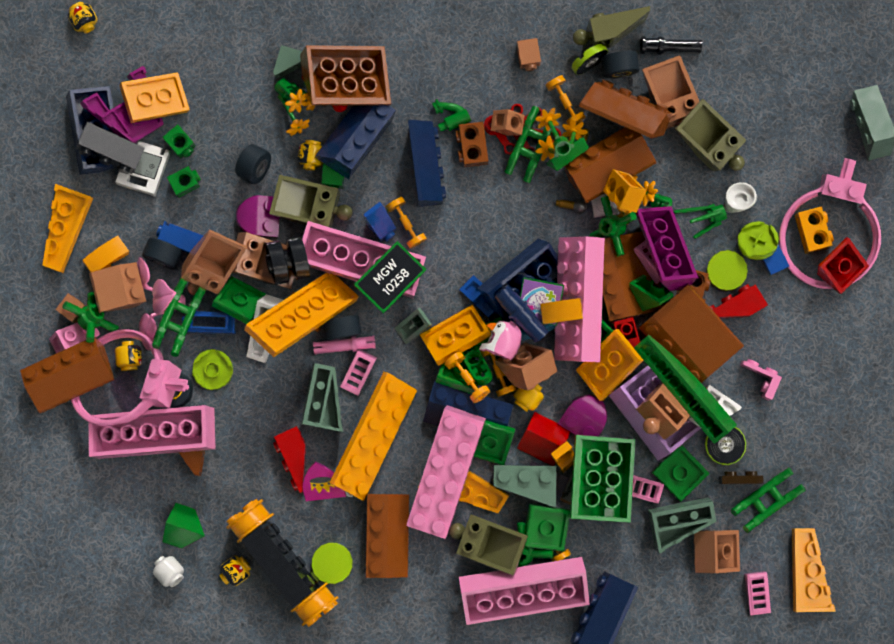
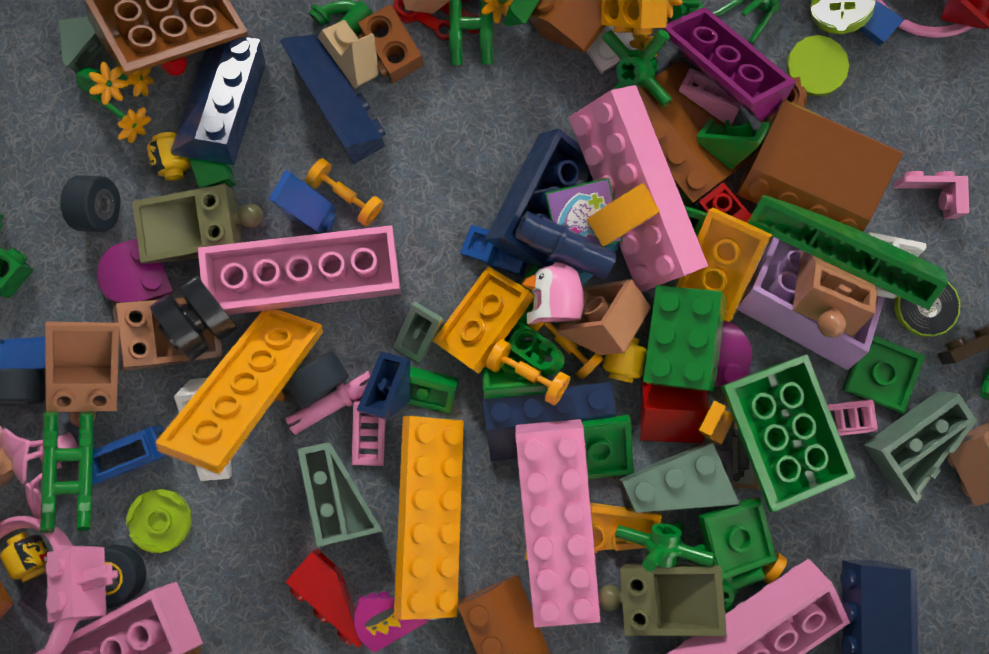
camera: 20 degrees left, 0 degrees up
(238, 300) = (147, 405): green tile -> none
(381, 350) = (387, 387): none -> dark blue slope
(390, 277) = (352, 276): black tile -> none
(402, 360) = (432, 390): none -> green slope
(446, 143) = (354, 56): none -> tan slope
(501, 511) = (664, 546): none -> green bar
(568, 399) = (685, 338): none -> green brick
(578, 206) = (575, 66): piece -> none
(742, 305) = (866, 98): red slope -> none

